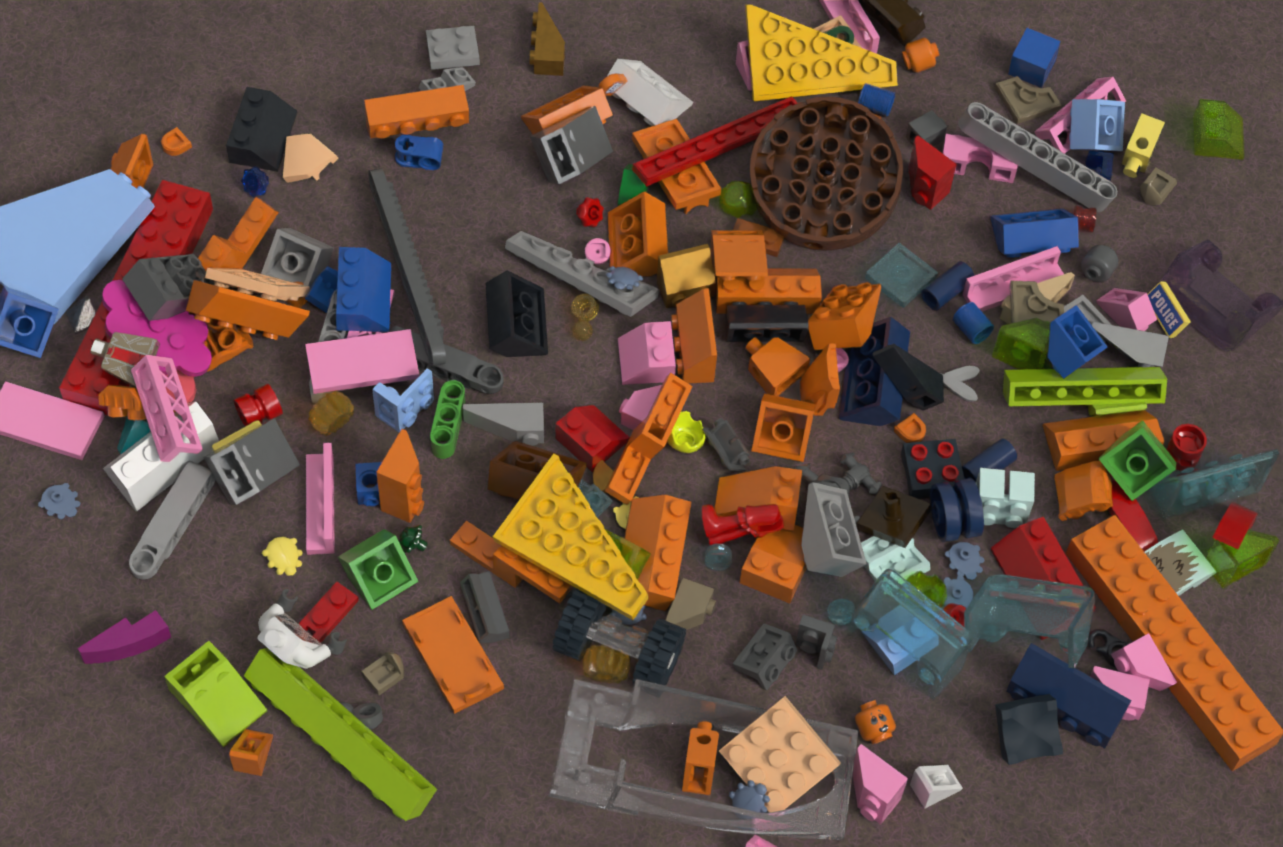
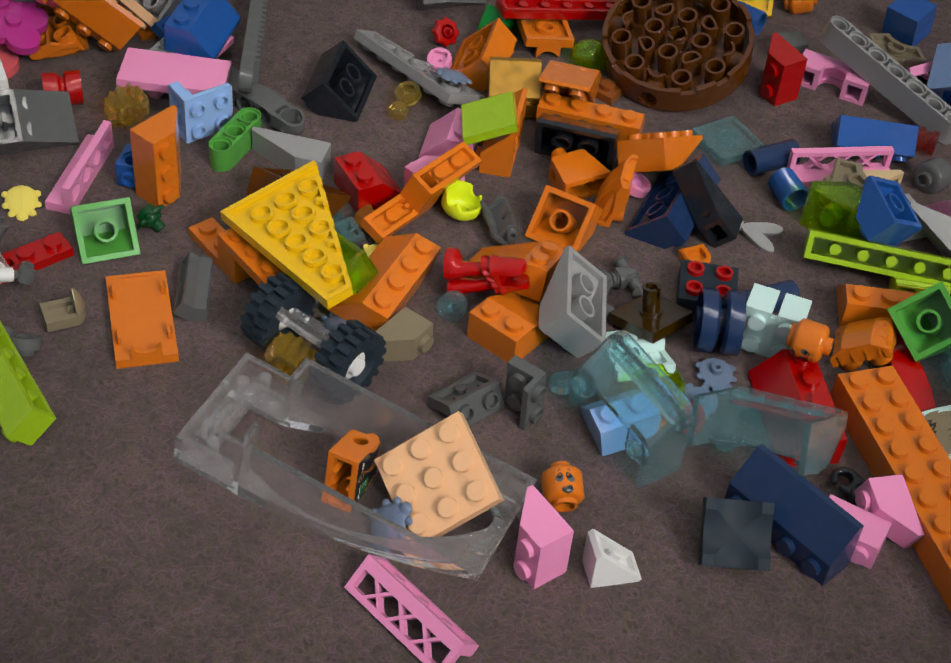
camera: 15 degrees right, 15 degrees down
(685, 338) = (489, 118): none -> lime tile
(1042, 518) = (809, 340): none -> orange head

